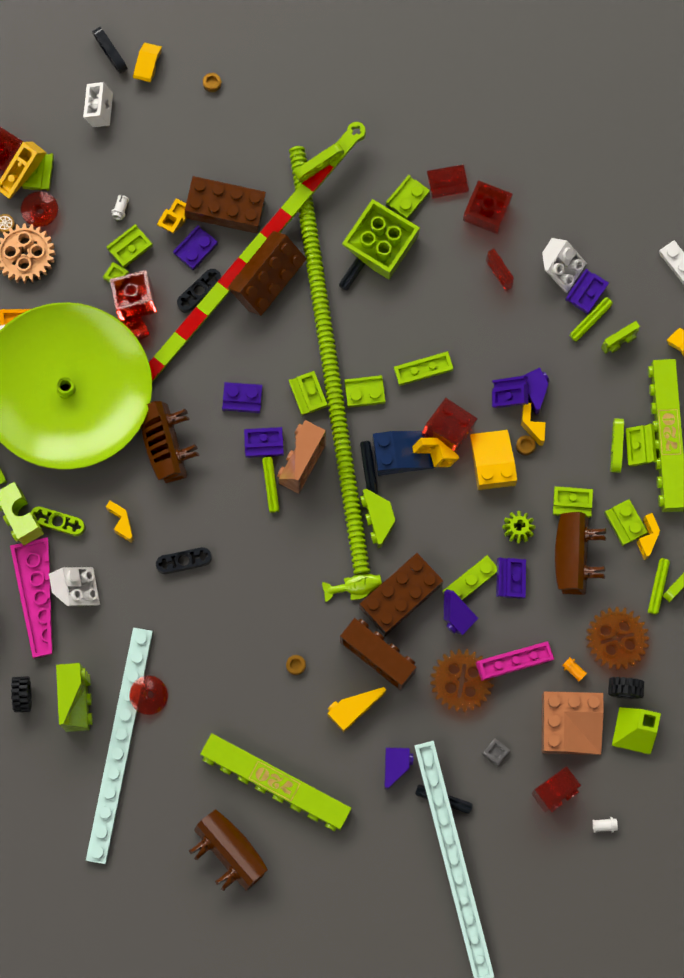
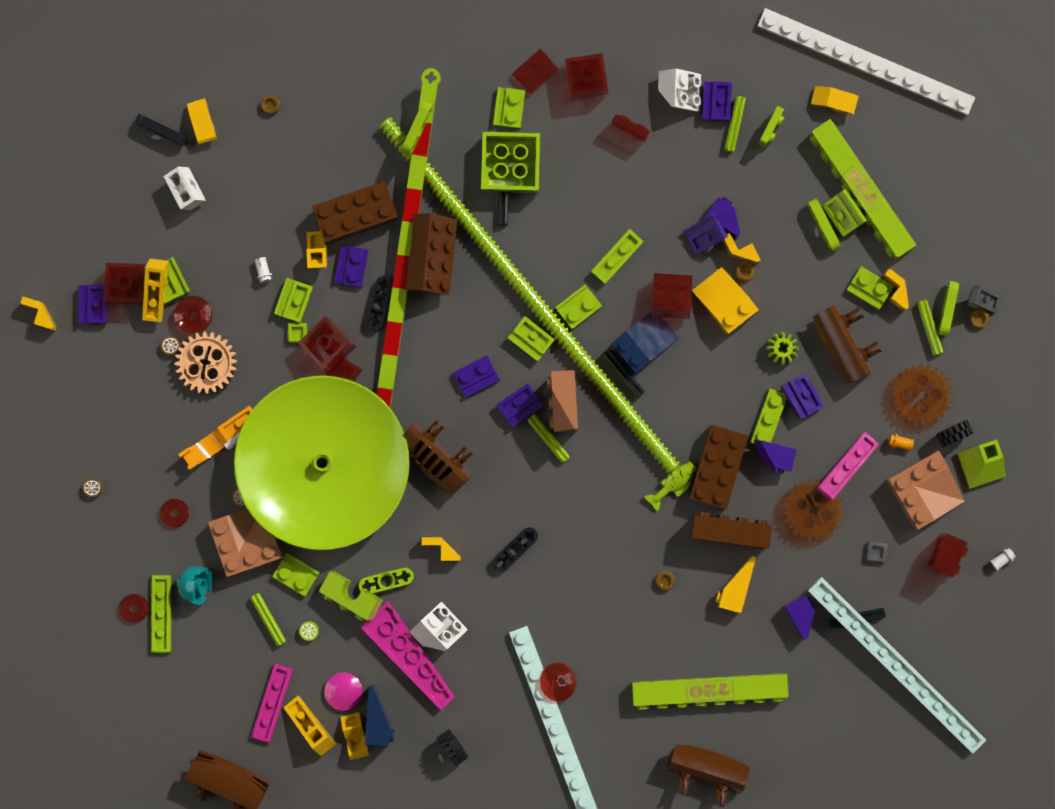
camera: 30 degrees left, 10 degrees up
(73, 697) = (500, 724): lime slope -> none
(379, 516) = (658, 411): lime slope -> none
(440, 453) = (677, 324): yellow slope -> none
(572, 500) = (815, 298): lime plate -> none

